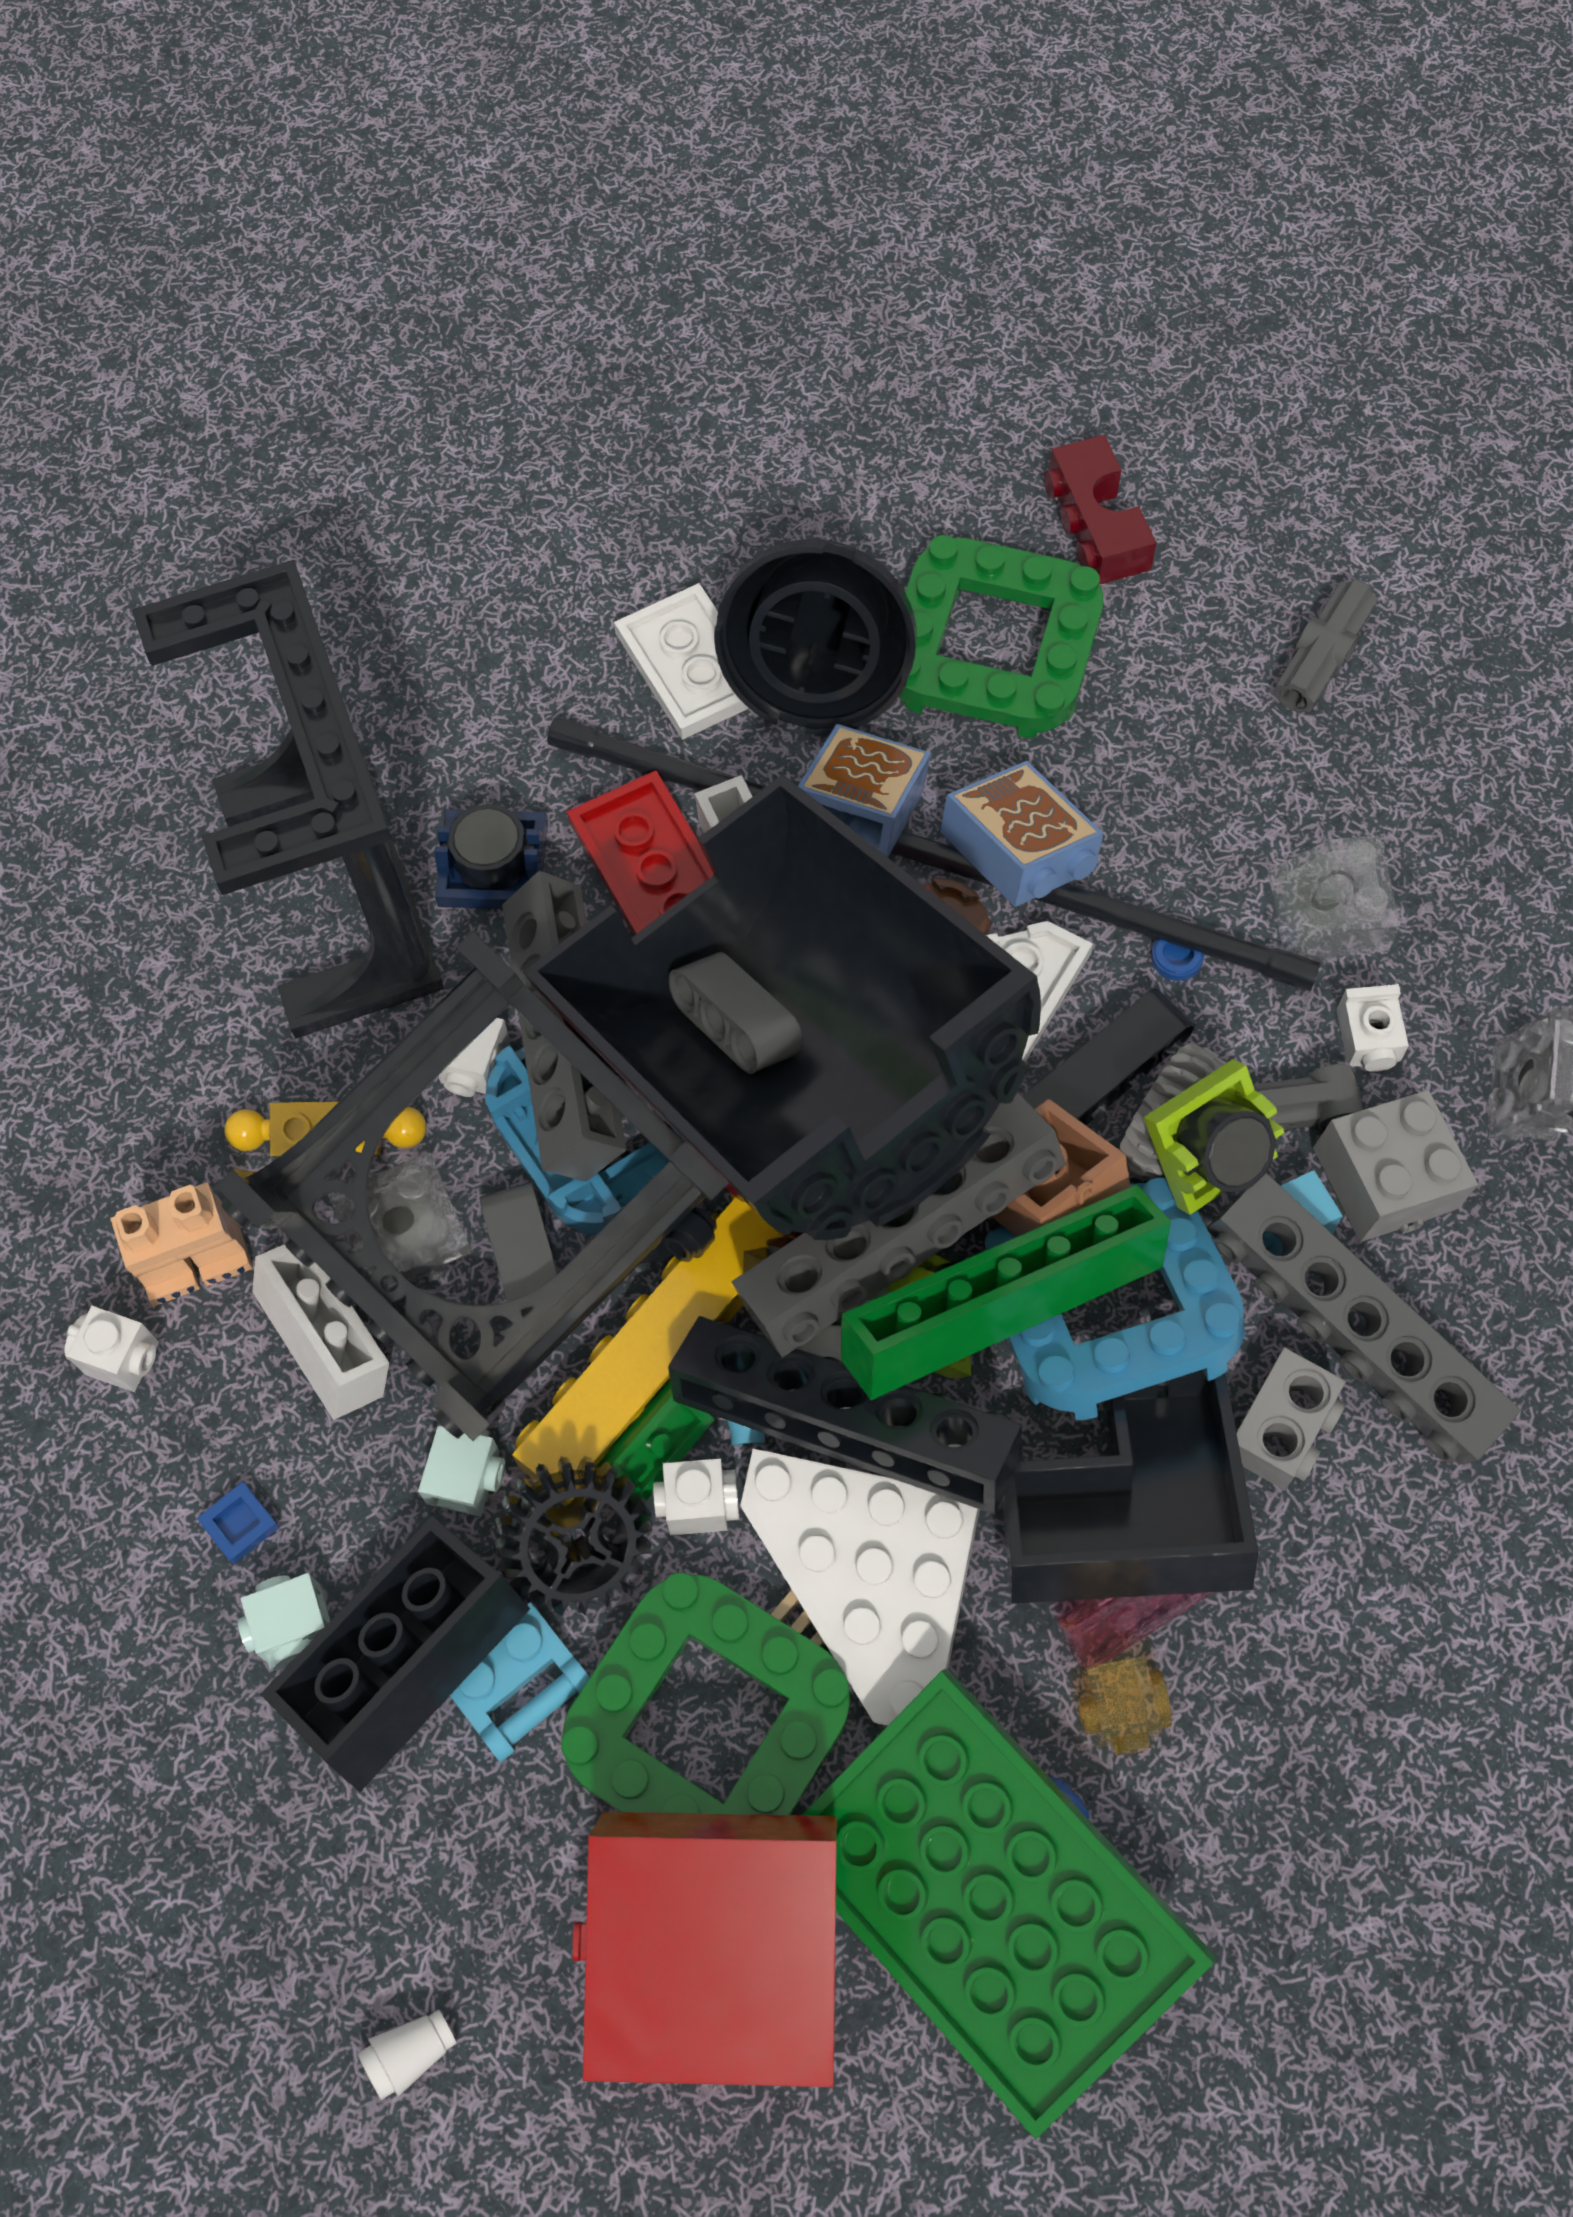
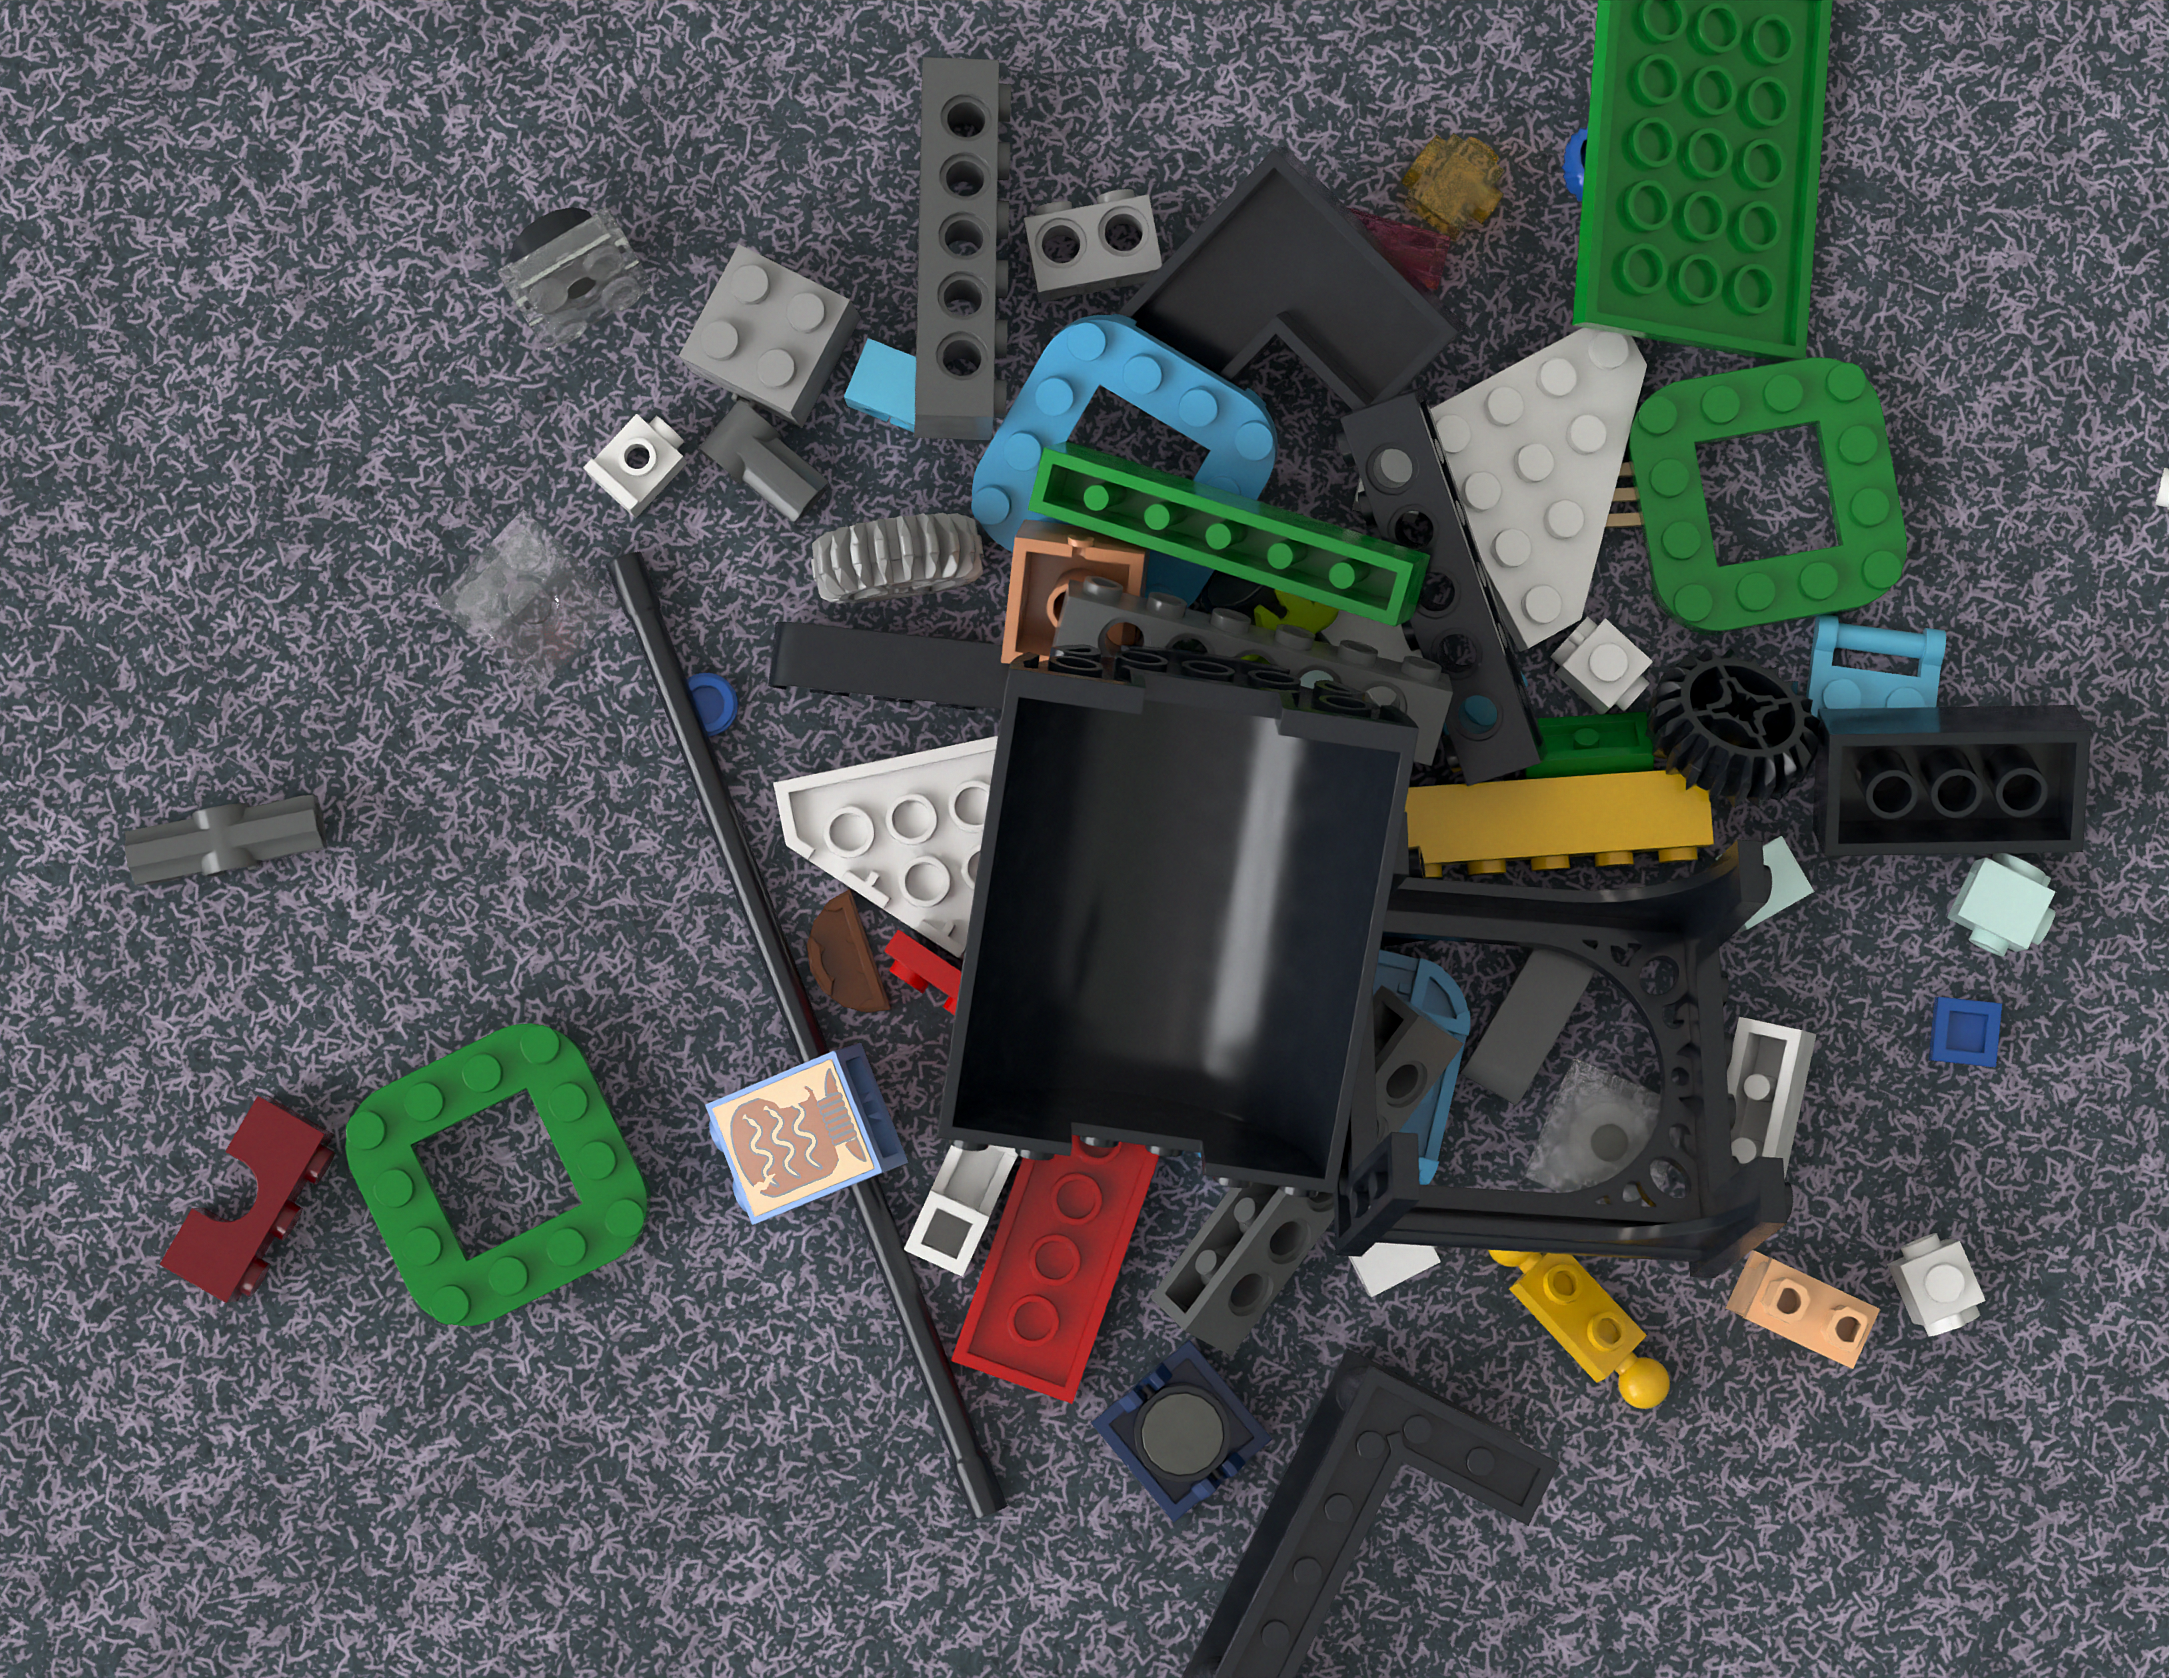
camera: 135 degrees left, 20 degrees up
(678, 659) = (791, 1452): white plate -> none
(709, 1949) = (1934, 322): red container -> none
(736, 1012) = (1173, 1003): dark grey beam -> none
(815, 635) = (672, 1324): black cone -> none
(1021, 833) = (720, 940): brick -> none
(1214, 1137) = (923, 477): piece -> none

